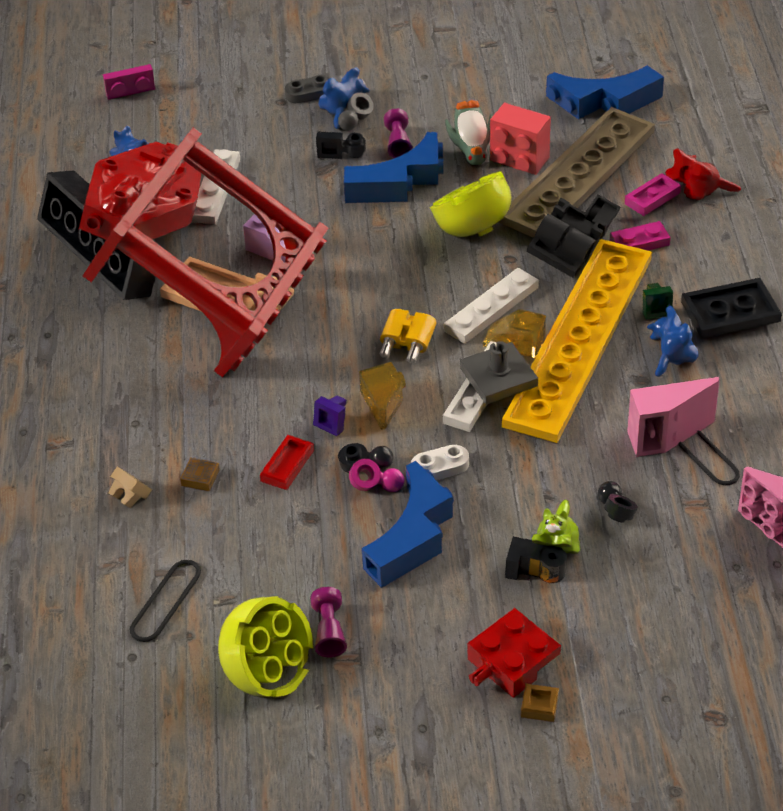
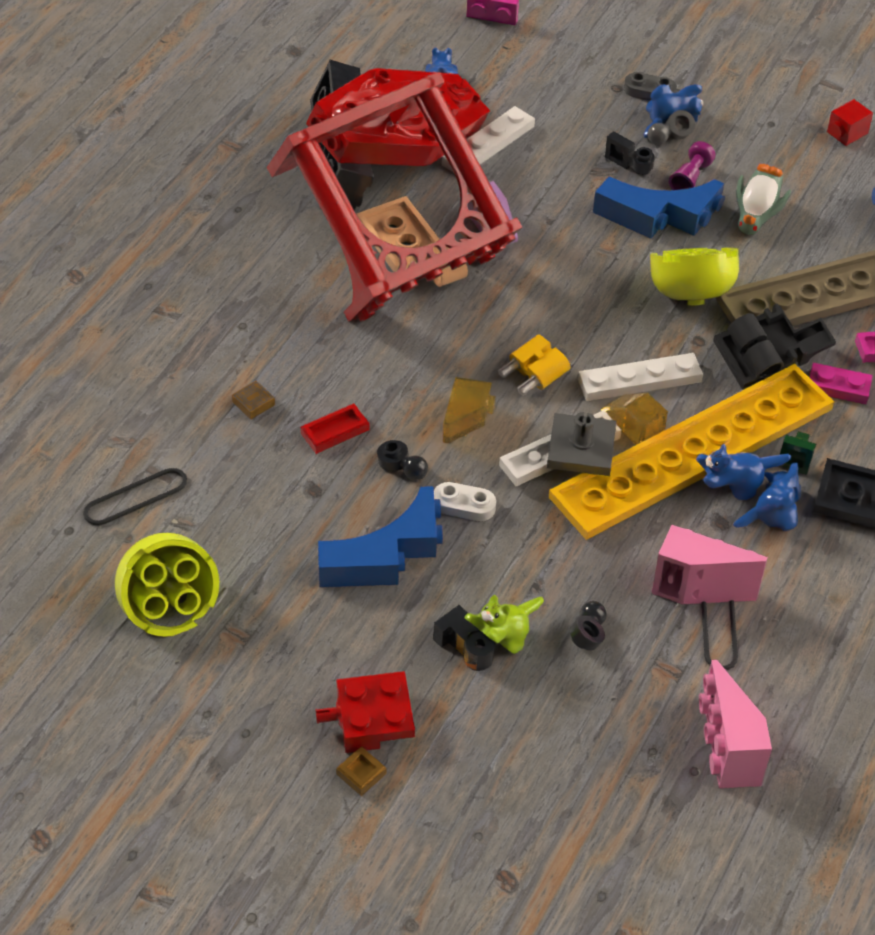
camera: 30 degrees right, 5 degrees up
(127, 483) = (184, 379): tan tile -> none
(329, 637) = (232, 605): magenta piece -> none
(330, 414) = (404, 404): dark purple tile -> none
(391, 479) = (405, 490): dark pink plate -> none
(486, 48) = (849, 122): none -> red brick
(520, 138) = (797, 226): coral brick -> none
(630, 333) = (741, 470): none -> blue animal

